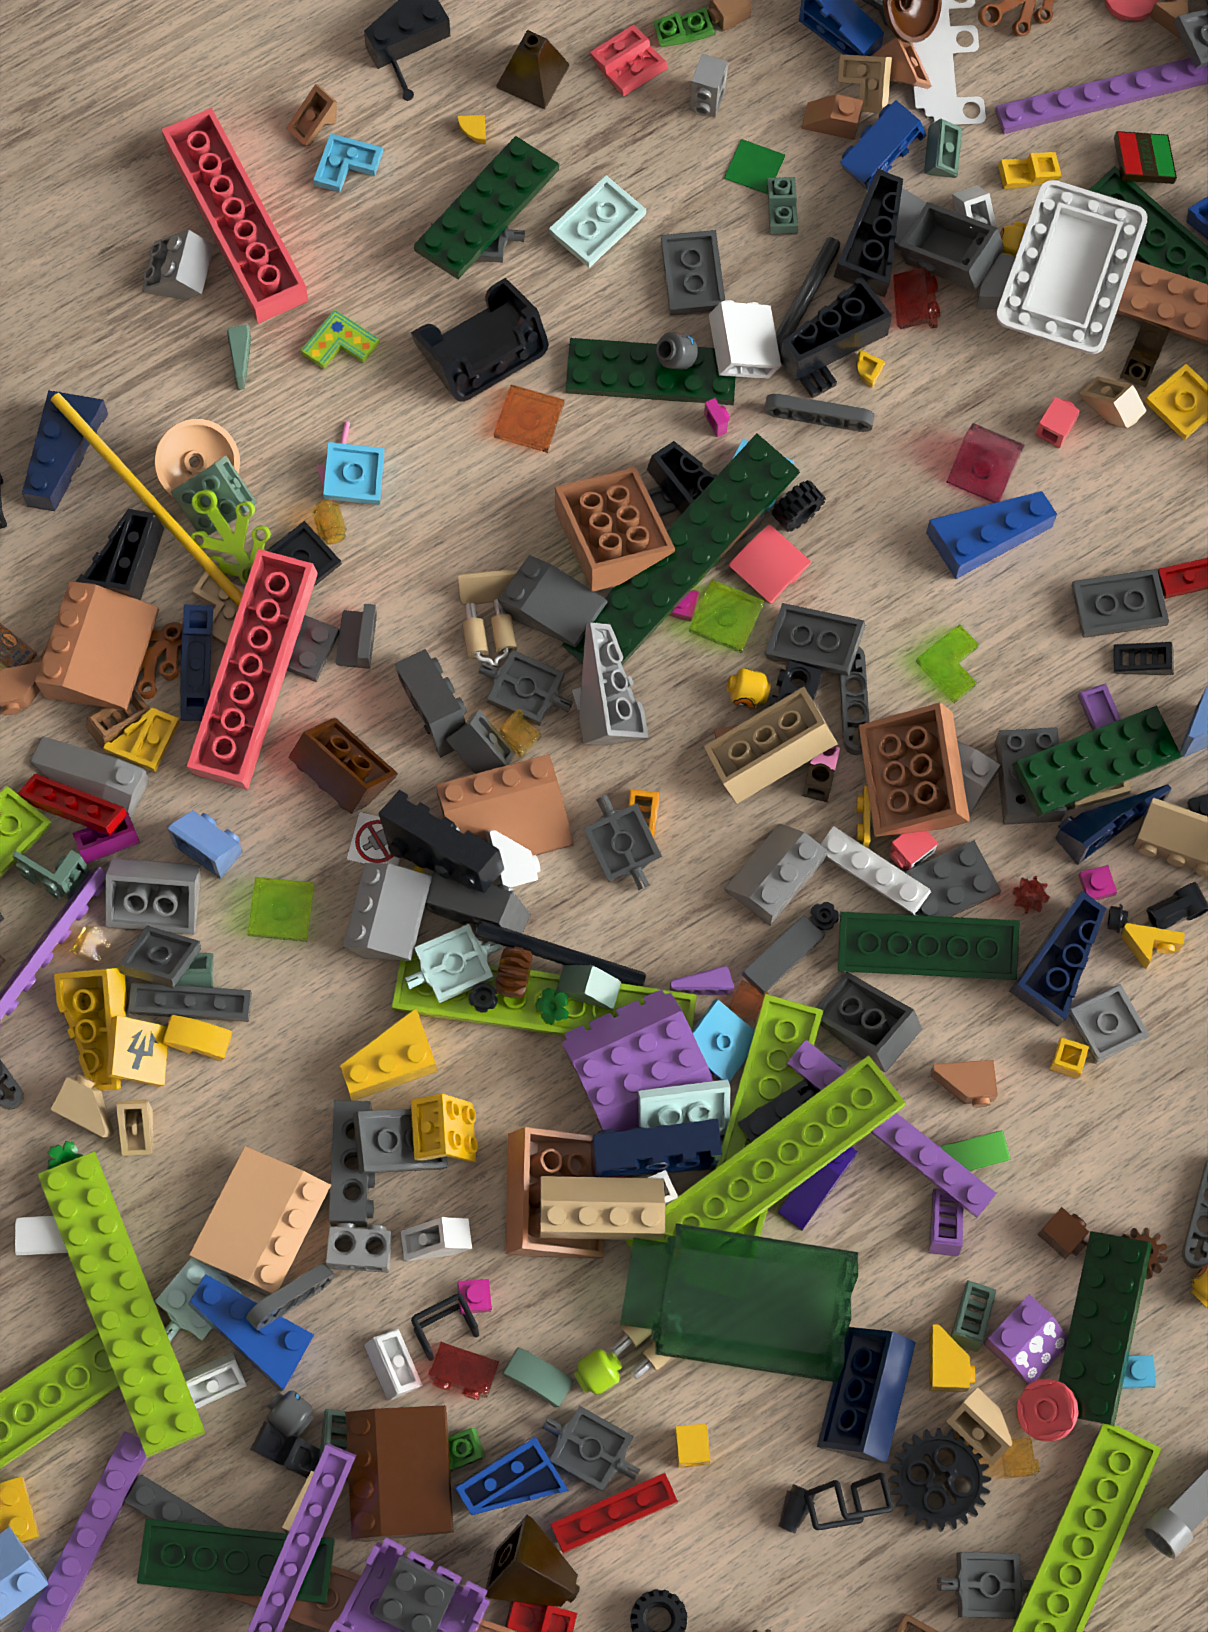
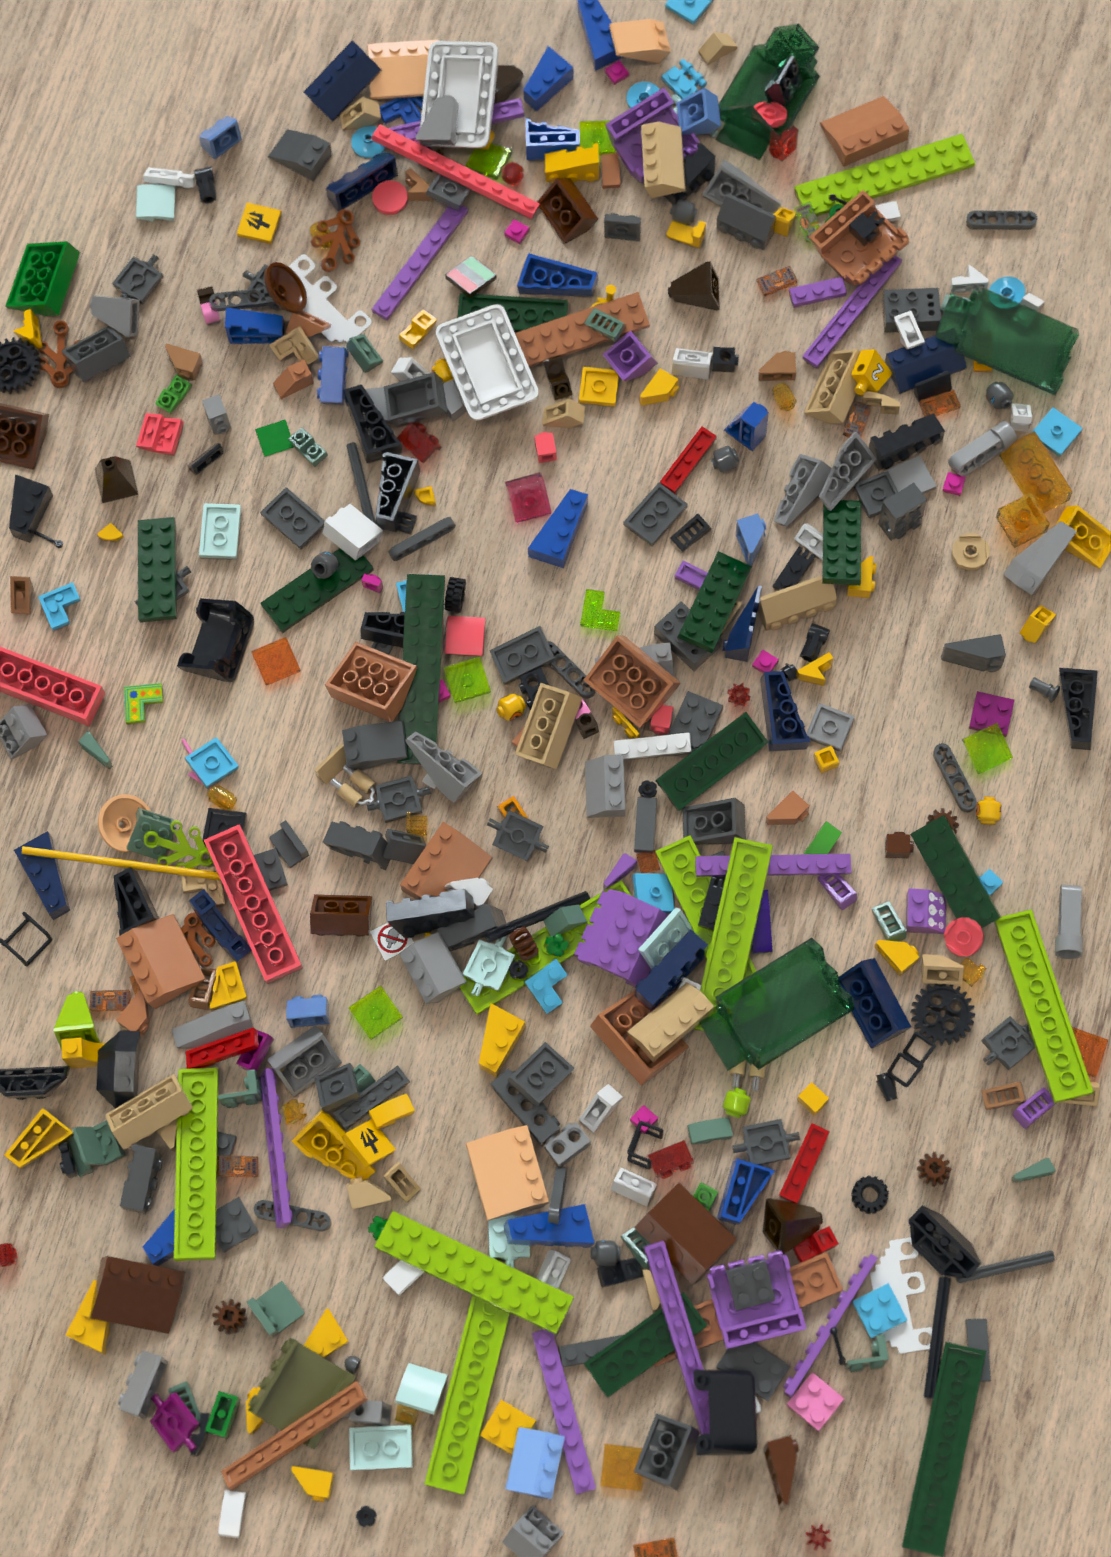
camera: 35 degrees left, 0 degrees up
(443, 1128) = (556, 1050): yellow bracket -> none
(497, 1036) = (541, 985): none -> medium azure plate
(654, 129) = (206, 458): none -> black slope

